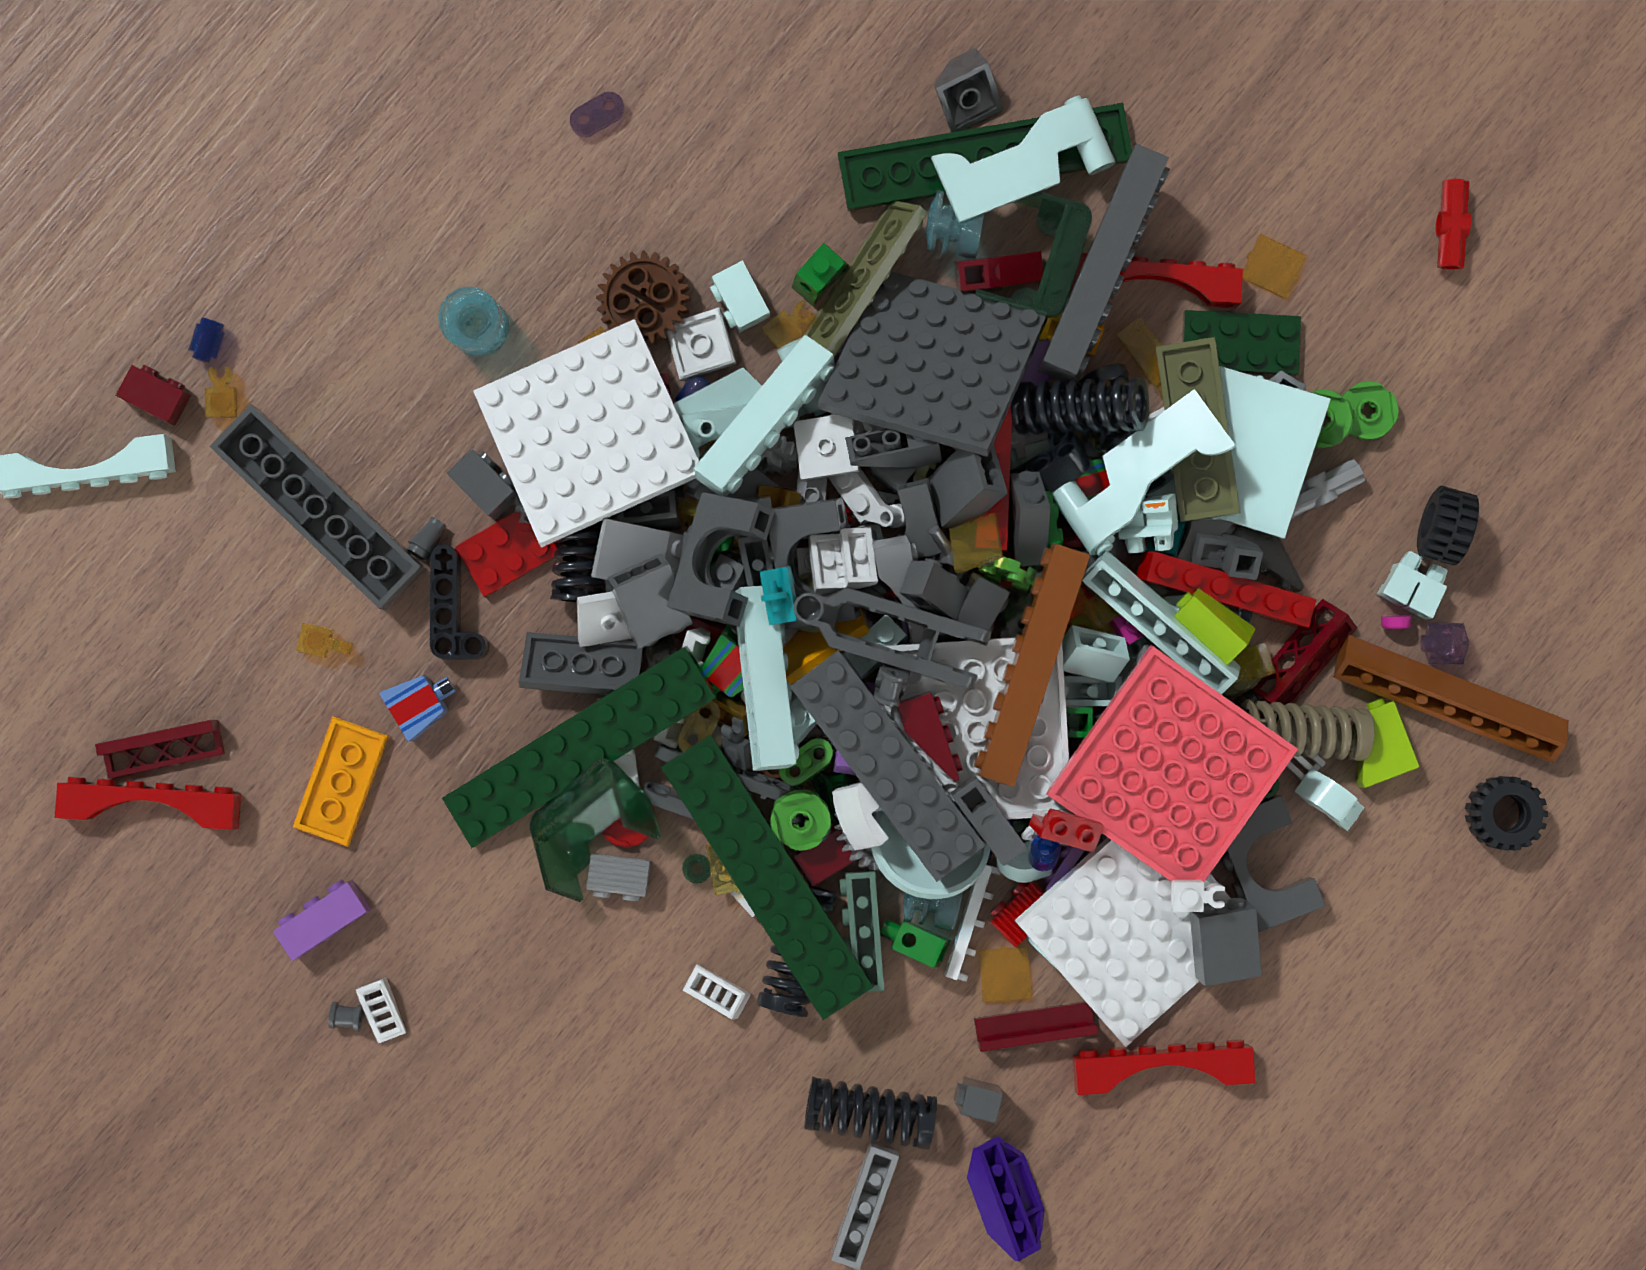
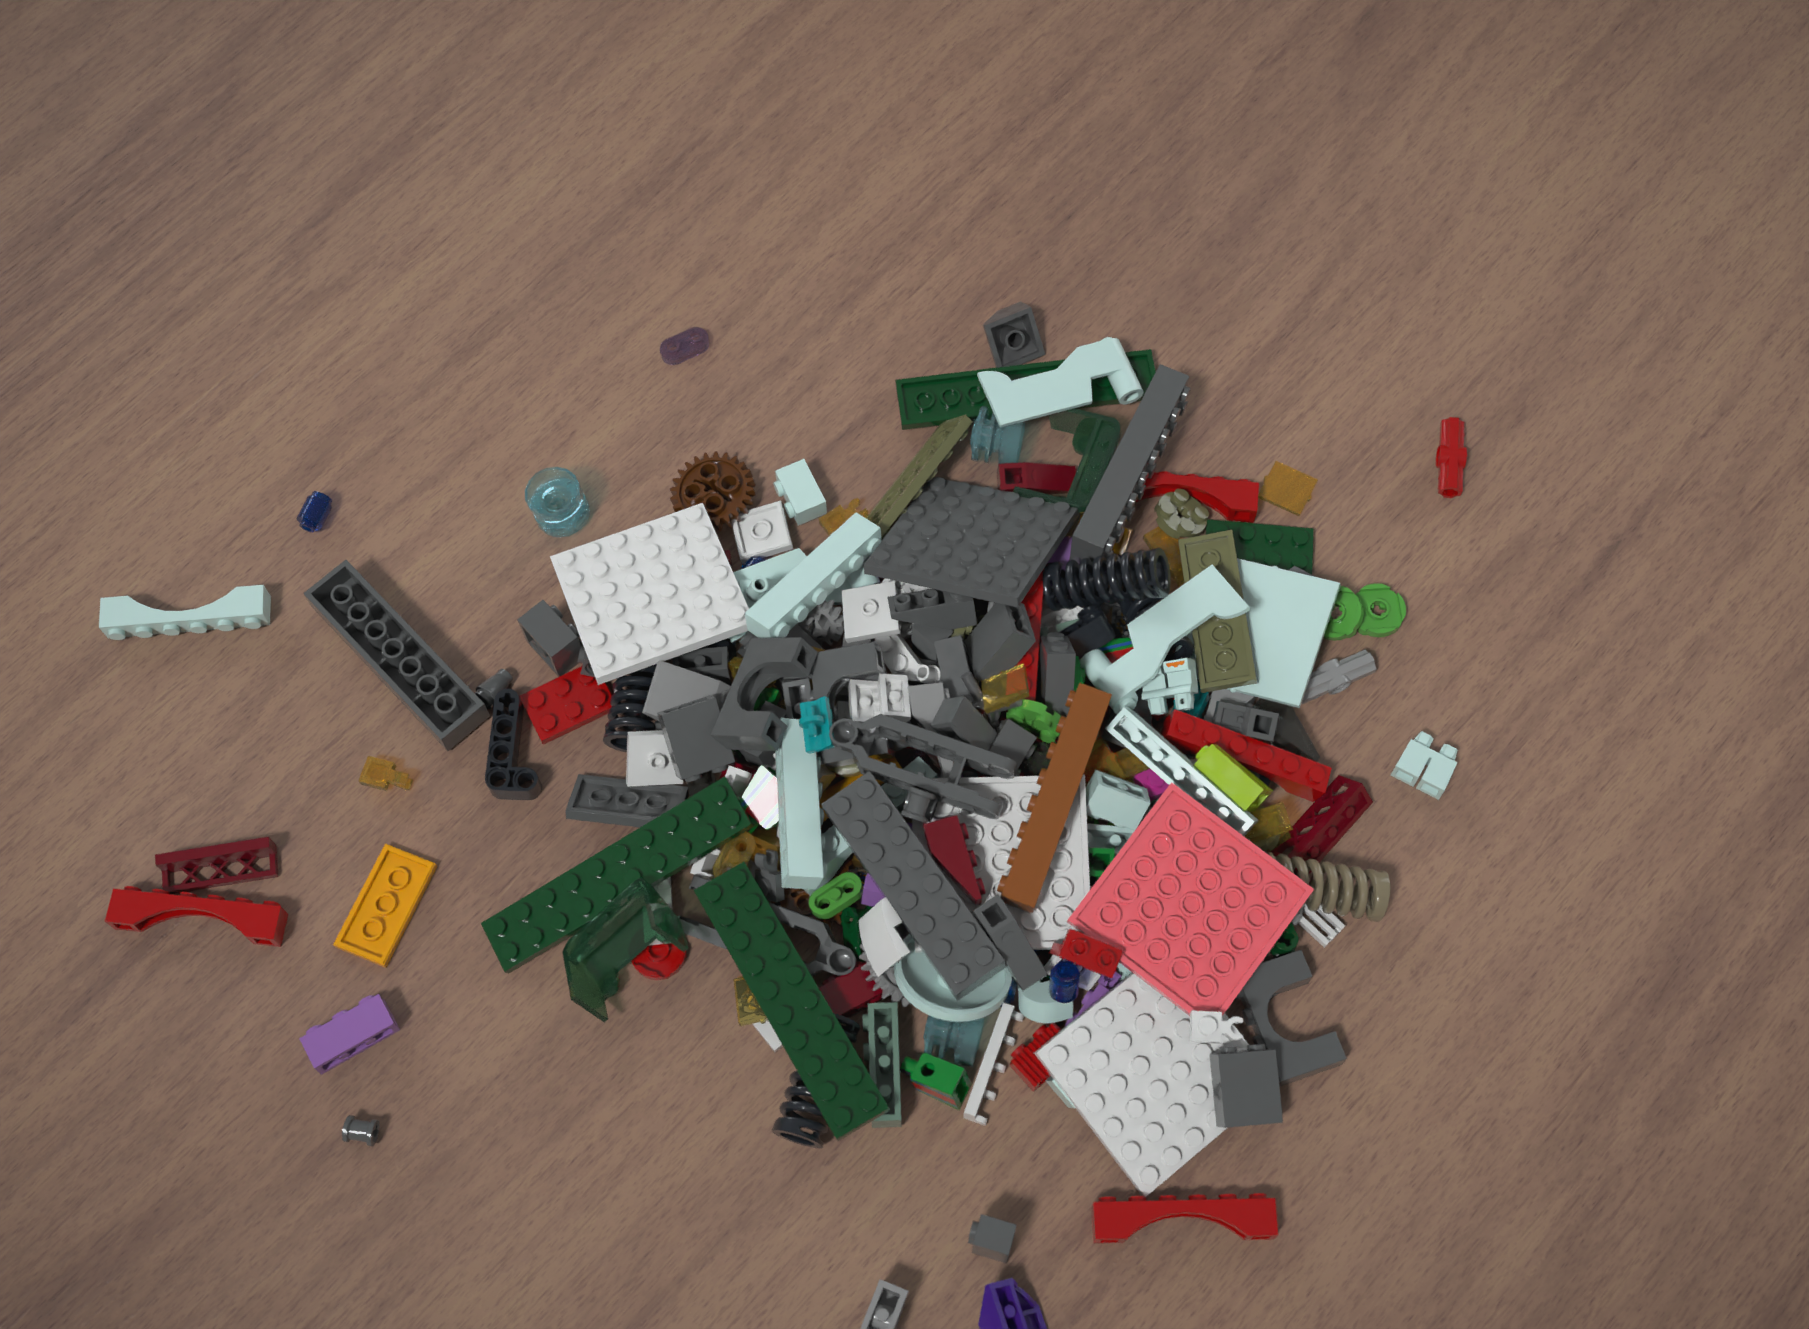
camera: 10 degrees right, 20 degrees down
(154, 395) = (259, 555): dark red brick -> none
(221, 399) = (321, 560): clear yellow plate -> none
(387, 996) = (386, 1129): white slope -> none
(417, 704) = (467, 834): torso -> none
(618, 875) = (645, 1003): light grey brick -> none
(687, 868) = (719, 993): clear green plate -> none
(739, 1004) = (750, 1133): white slope -> none
(809, 805) = (816, 959): bright green plate -> none
(819, 274) = (876, 471): green torso -> none
(821, 1092) = (829, 1240): black piece -> none
(1005, 974) = (1024, 1120): clear yellow piece -> none
(1034, 1026) = (1053, 1171): dark red fence -> none
(1169, 300) = (1181, 502): none -> olive plate
(1330, 798) = (1351, 955): light aqua brick -> none
(1391, 747) = (1407, 912): lime slope -> none
(1396, 621) = (1409, 796): dark pink tile -> none
(1445, 643) = (1457, 816): clear purple brick -> none
(1448, 525) = (1455, 706): black tyre -> none
(1451, 699) = (1467, 868): dark orange brick -> none
(1529, 819) = (1540, 962): black tyre -> none

